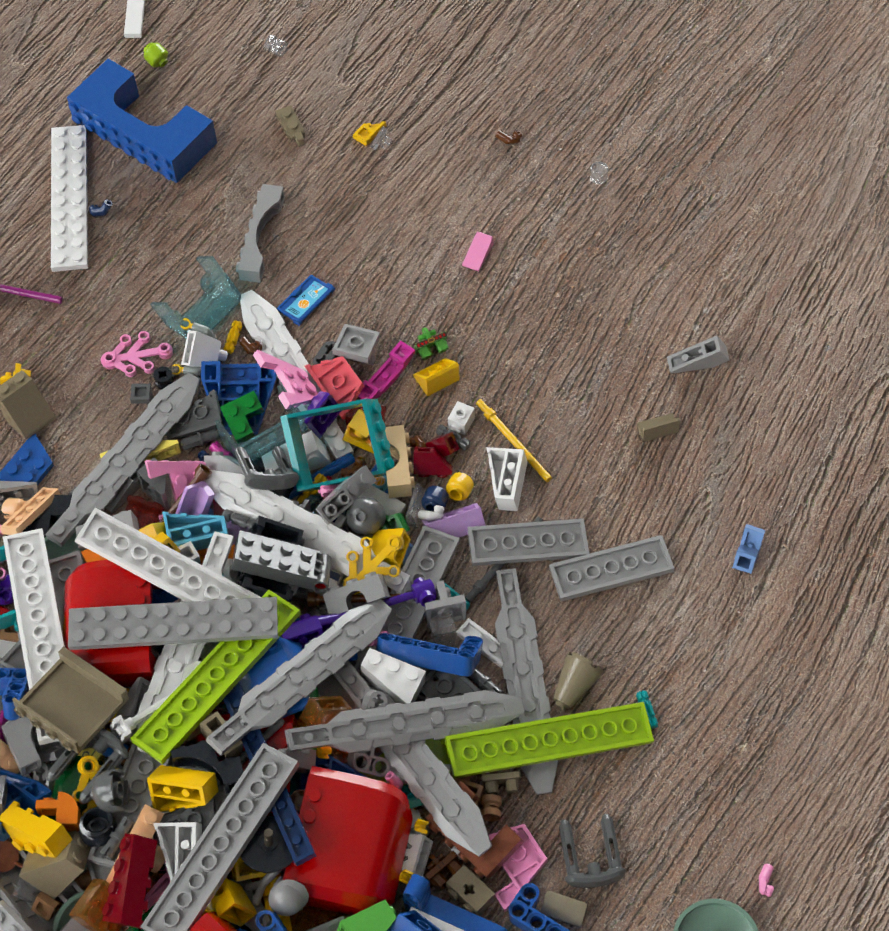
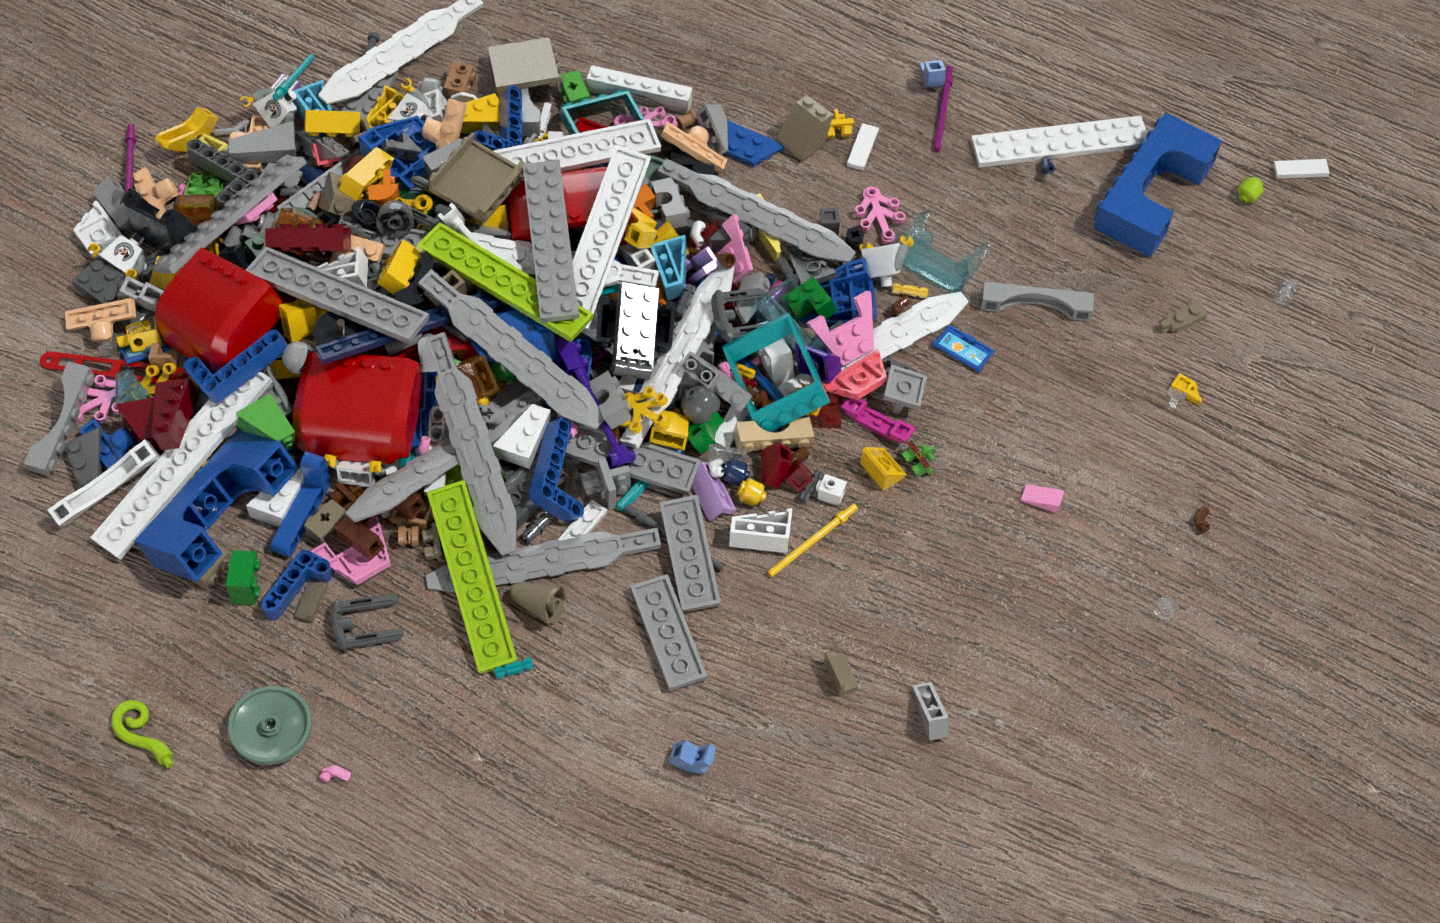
camera: 80 degrees right, 0 degrees up
(46, 363) = (862, 147): none -> white tile
(143, 516) = (695, 232): none -> white arm

